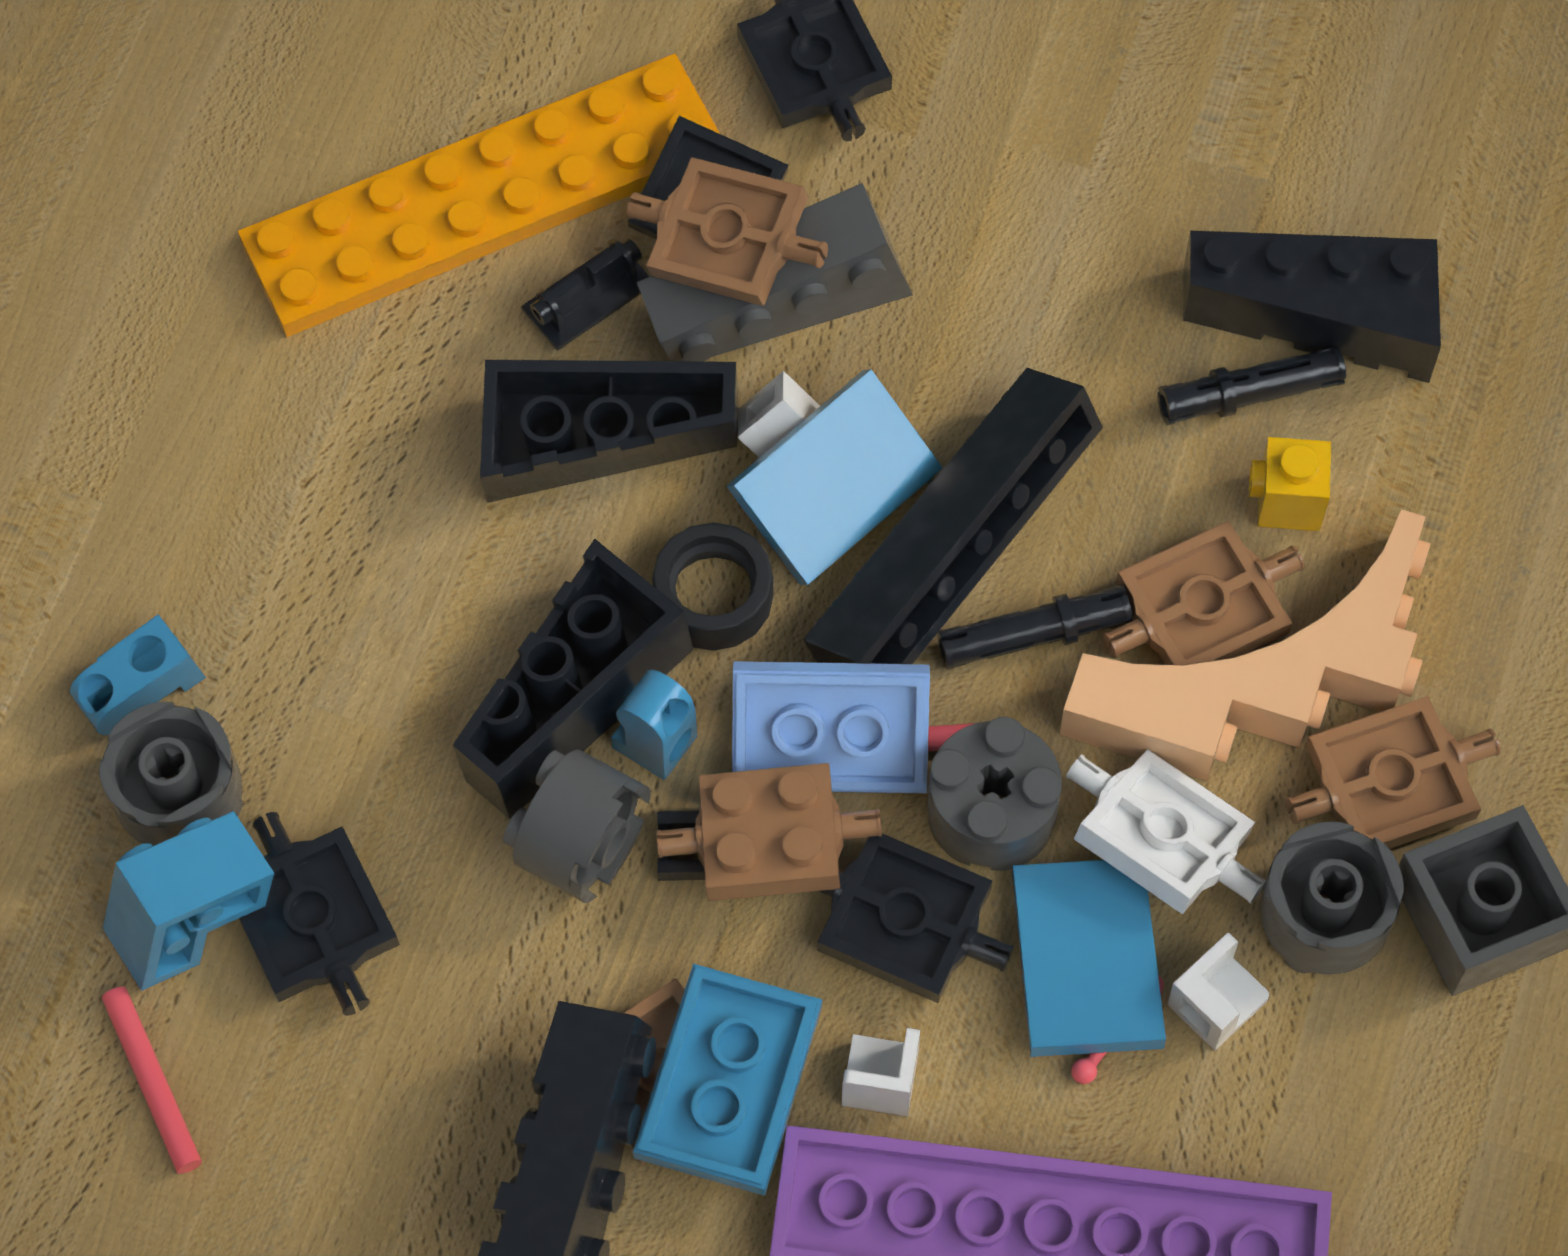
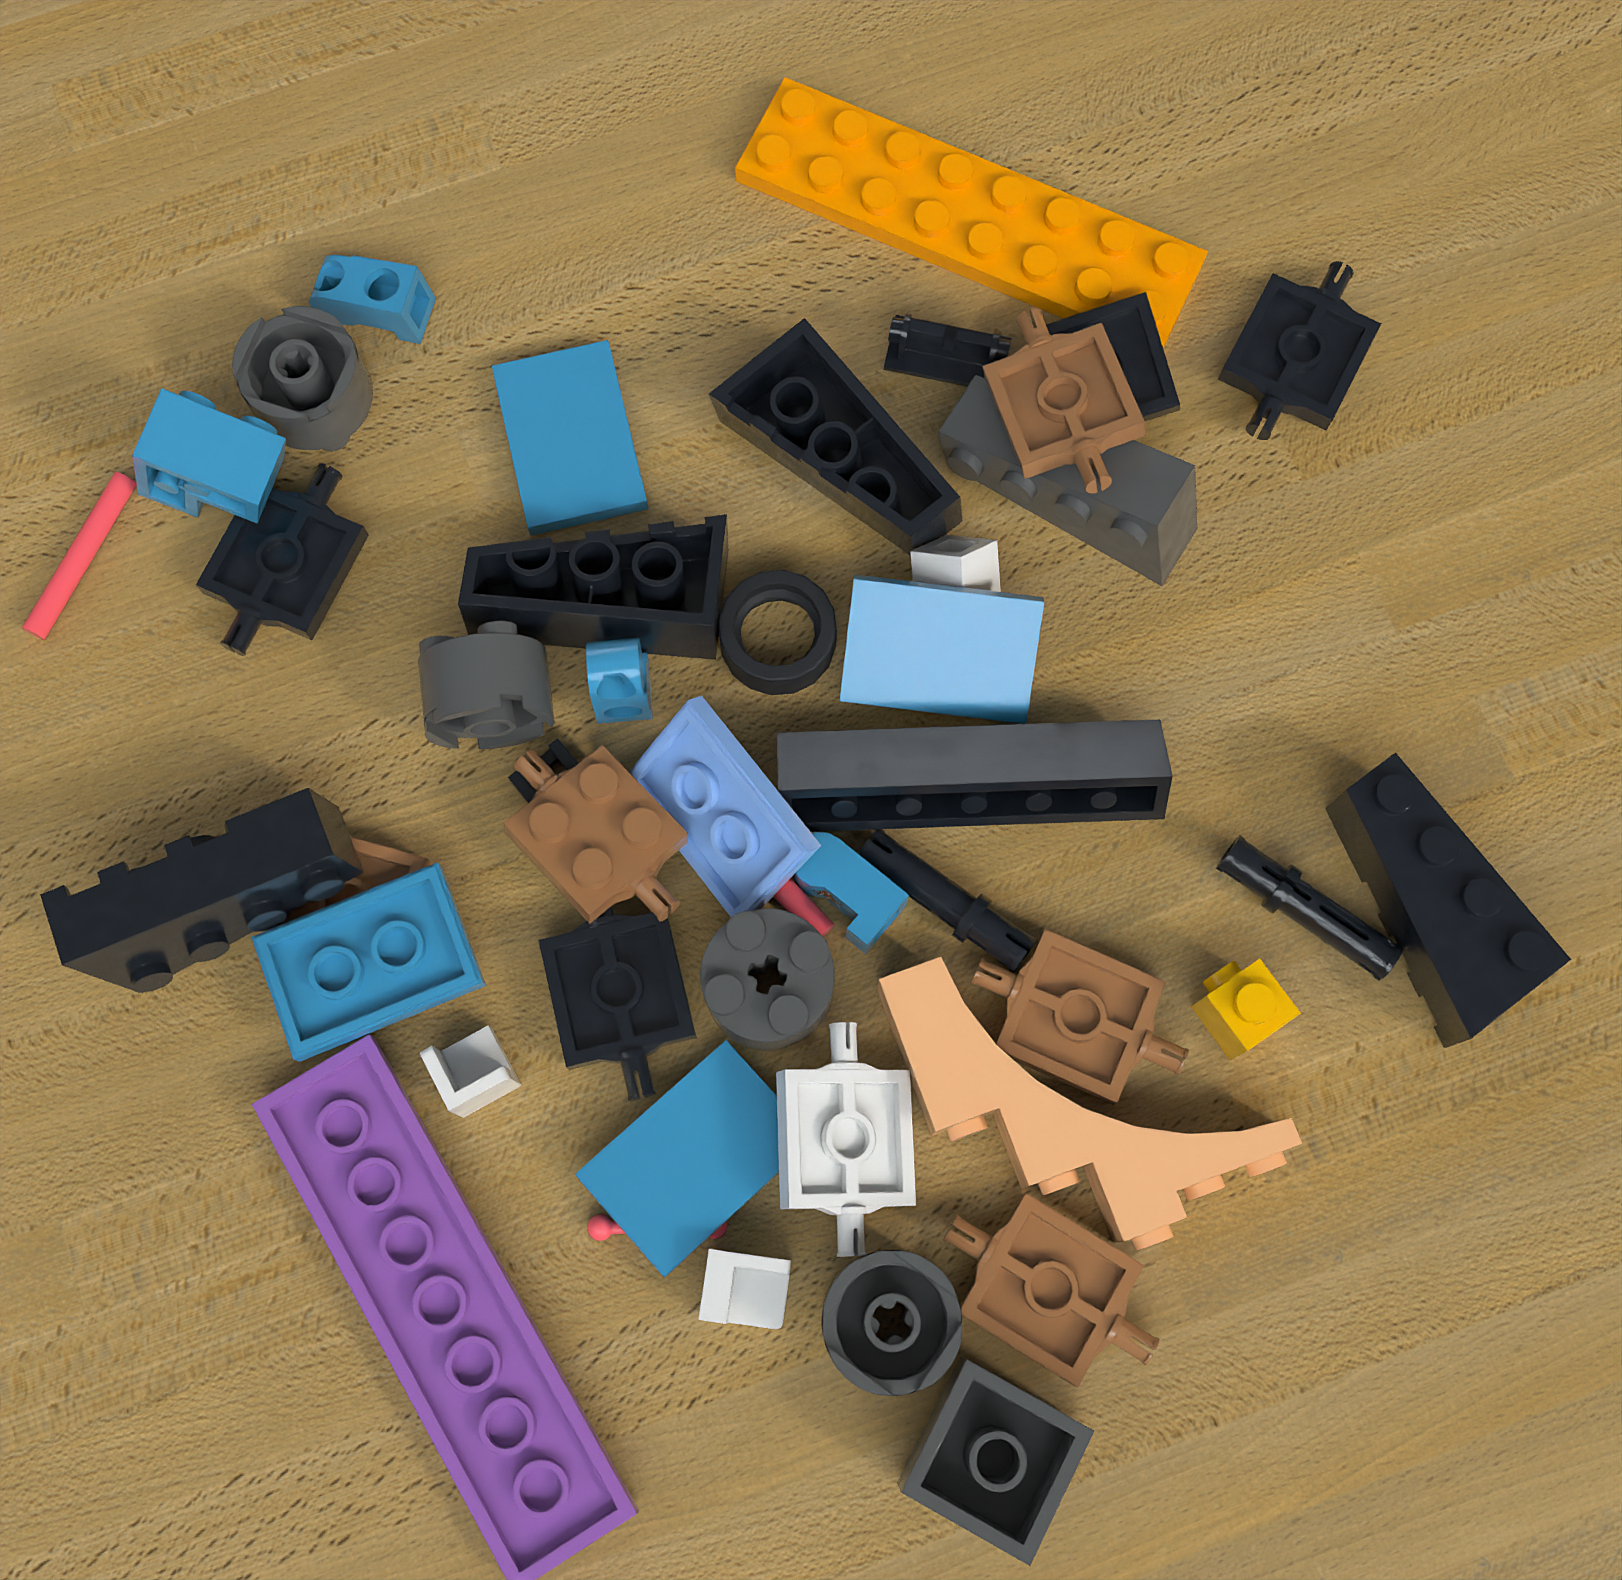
camera: 50 degrees right, 10 degrees up
(401, 620) = (569, 438): none -> dark azure tile
(977, 684) = (853, 889): none -> dark azure leg

